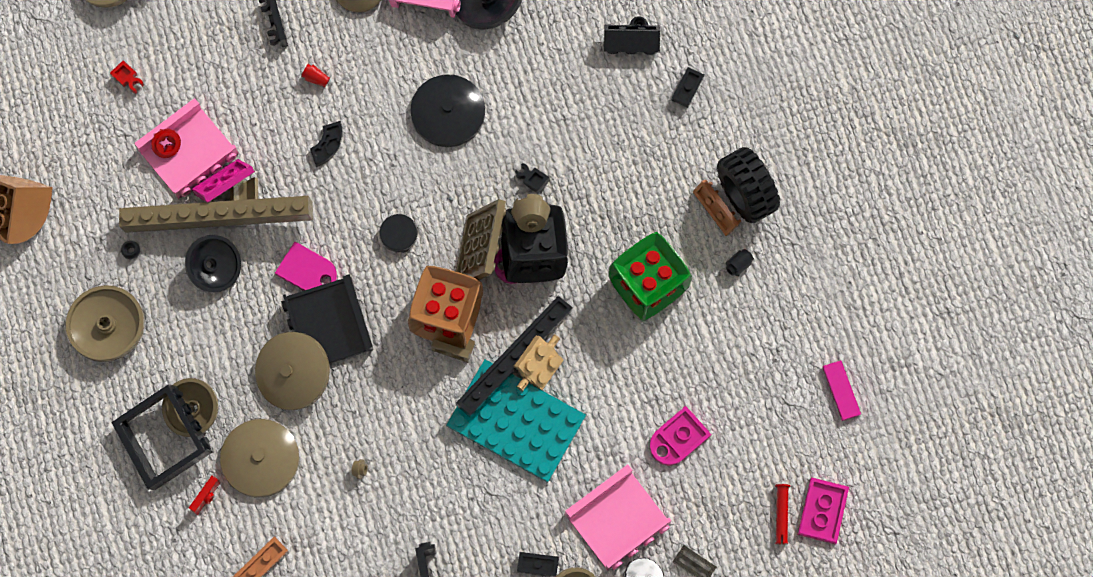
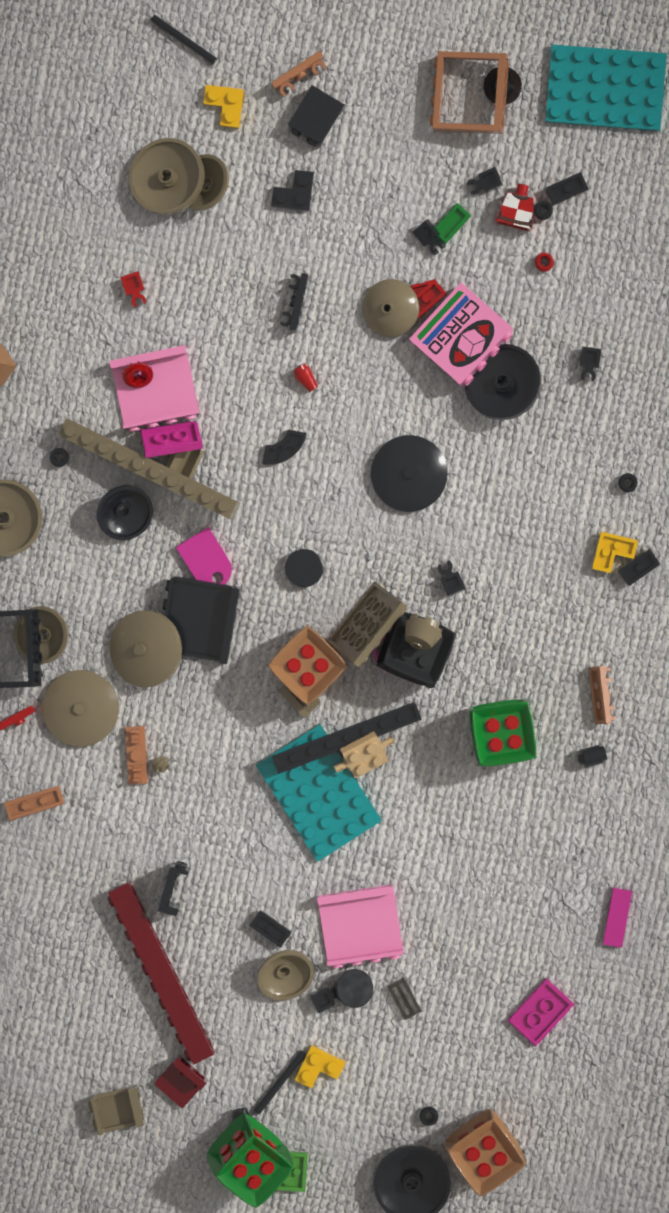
camera: 30 degrees right, 15 degrees up
(333, 473) = (136, 755): none -> nougat plate
(631, 39) = (612, 495): black brick -> none
(654, 82) = (608, 547): none -> yellow plate
(679, 436) = (453, 882): dark pink tile -> none
(748, 185) = (636, 696): black tyre -> none
(782, 513) = (503, 996): red pin -> none

